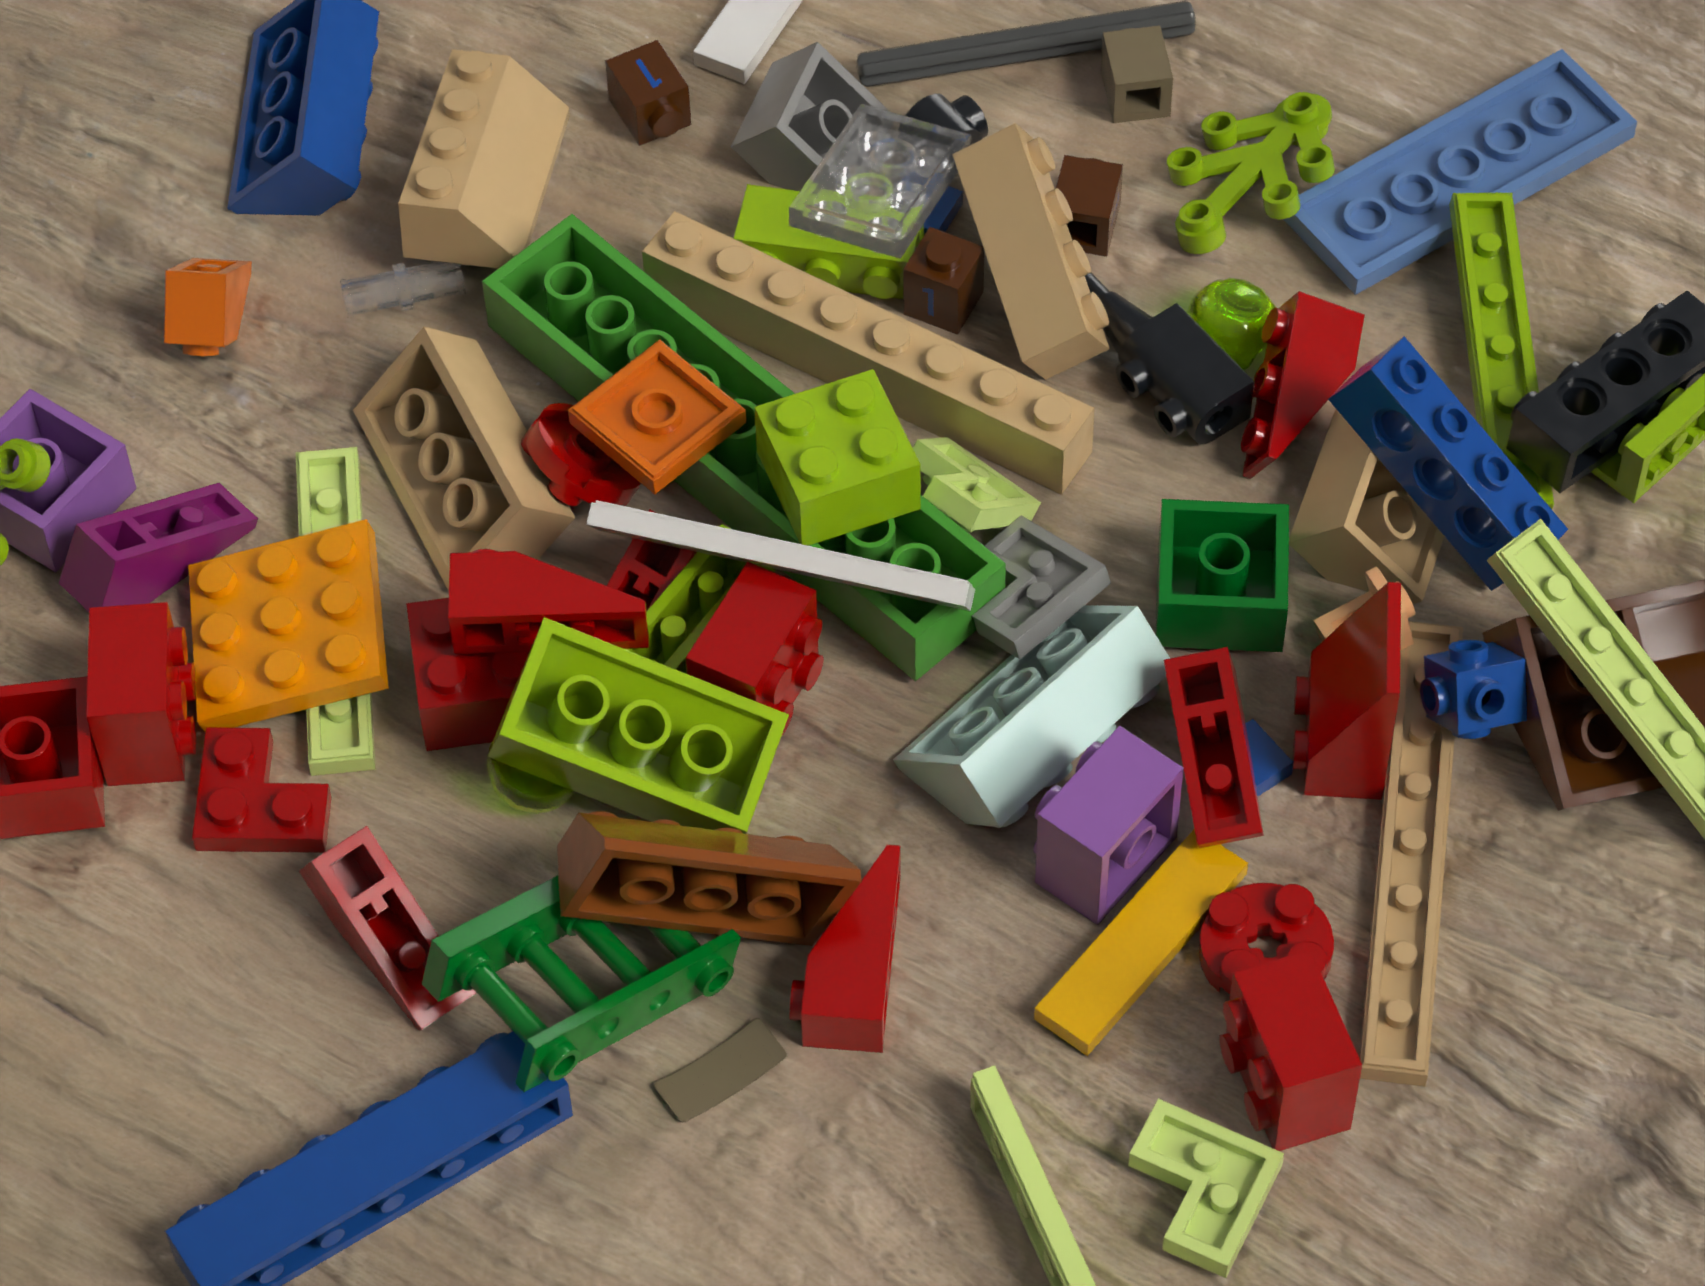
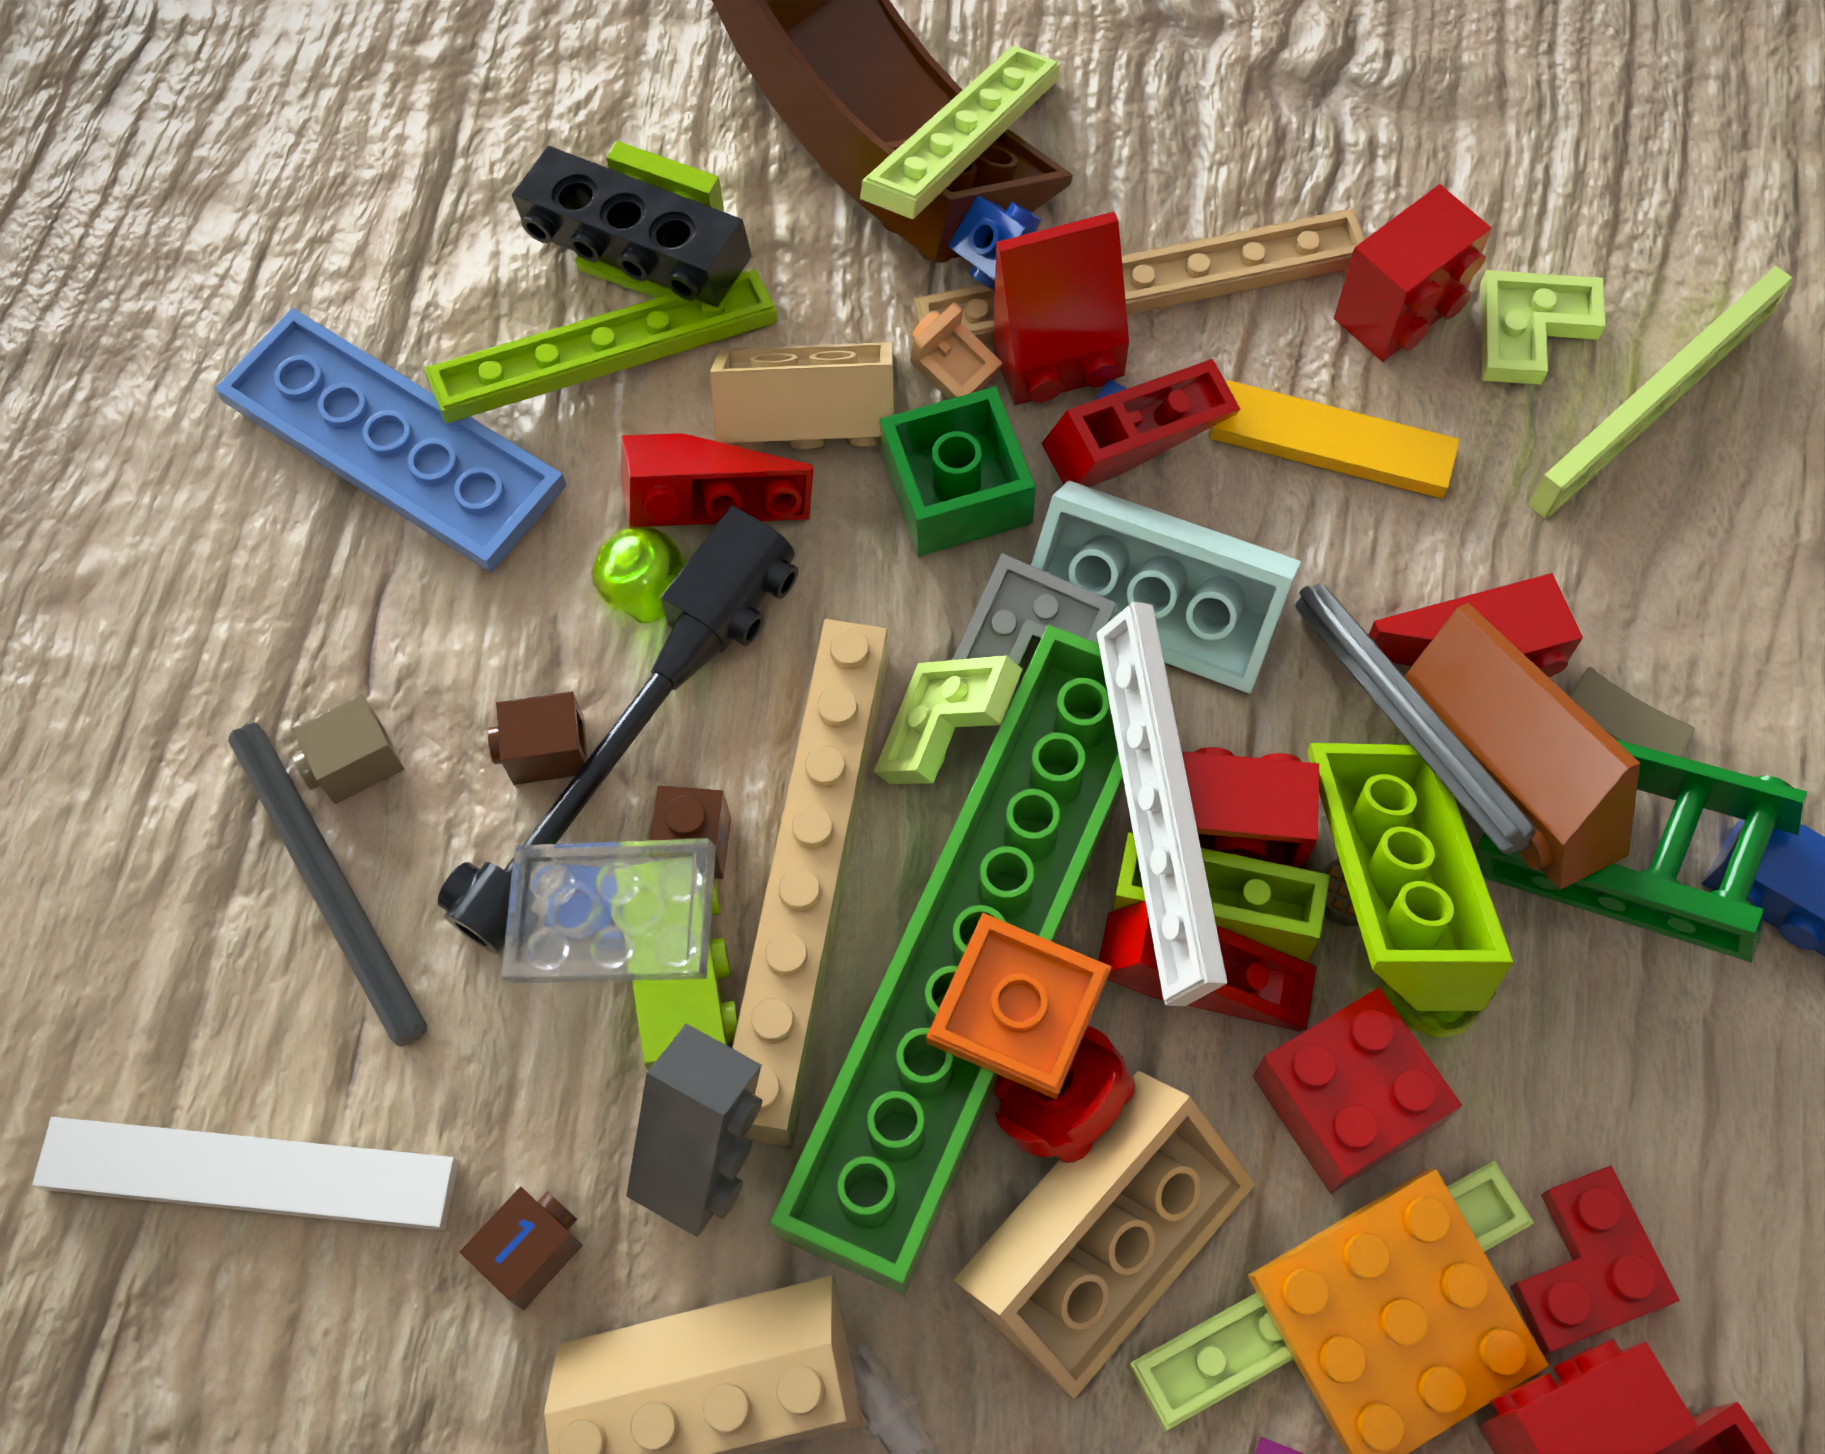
camera: 110 degrees left, 10 degrees up
(380, 922) = (1673, 1061): red slope -> none
(505, 595) = (1330, 1032): red slope -> none
(664, 175) = (694, 1130): none -> dark grey brick
(785, 817) = (1417, 721): none -> dark grey axle
(799, 115) = (518, 1049): light grey slope -> none
(838, 458) = (1018, 789): lime brick -> none
(1032, 251) = (641, 746): tan brick -> none
(1107, 823) = (1269, 466): medium lavender brick -> none
(1257, 911) = (1298, 322): red plate -> none
(1296, 121) = (431, 604): lime plant -> none
(1441, 456) = (785, 309): blue brick -> none

